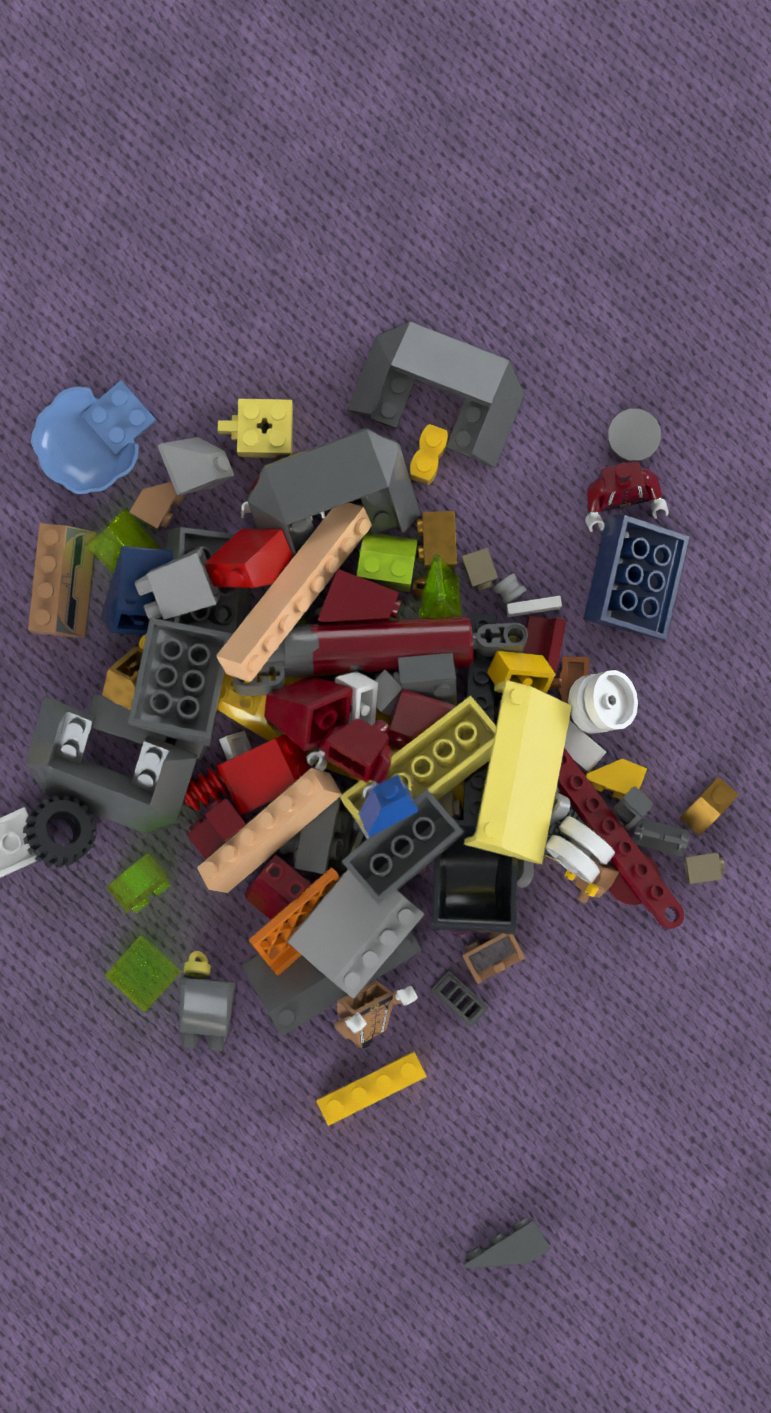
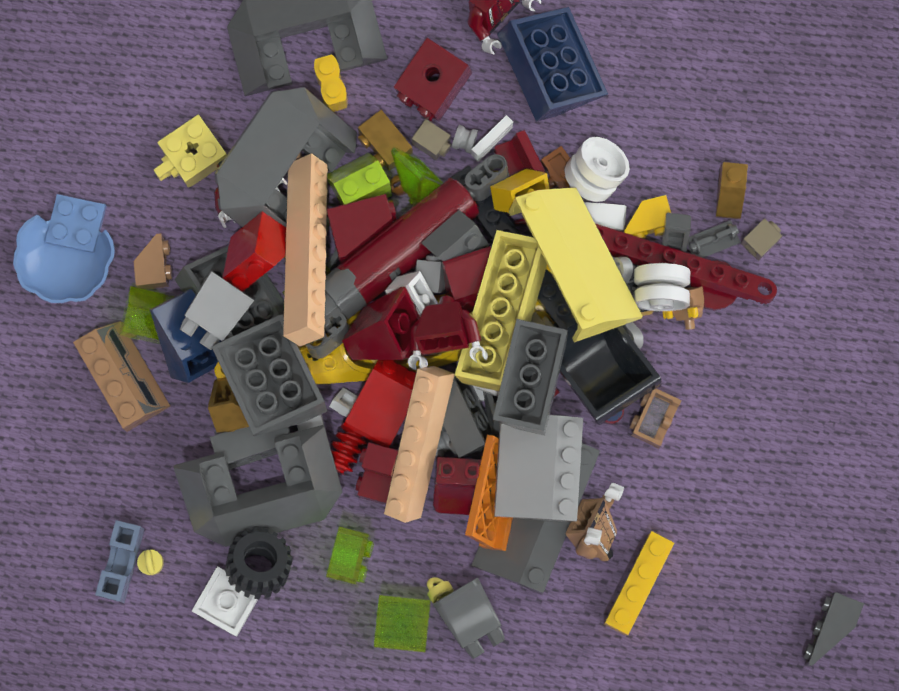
camera: 35 degrees left, 5 degrees down
(195, 464) = (161, 214): light grey slope -> none
(387, 805) = (496, 352): blue slope -> none
(475, 1016) = (675, 479): dark grey slope -> none
(500, 513) = (432, 97): none -> dark red brick

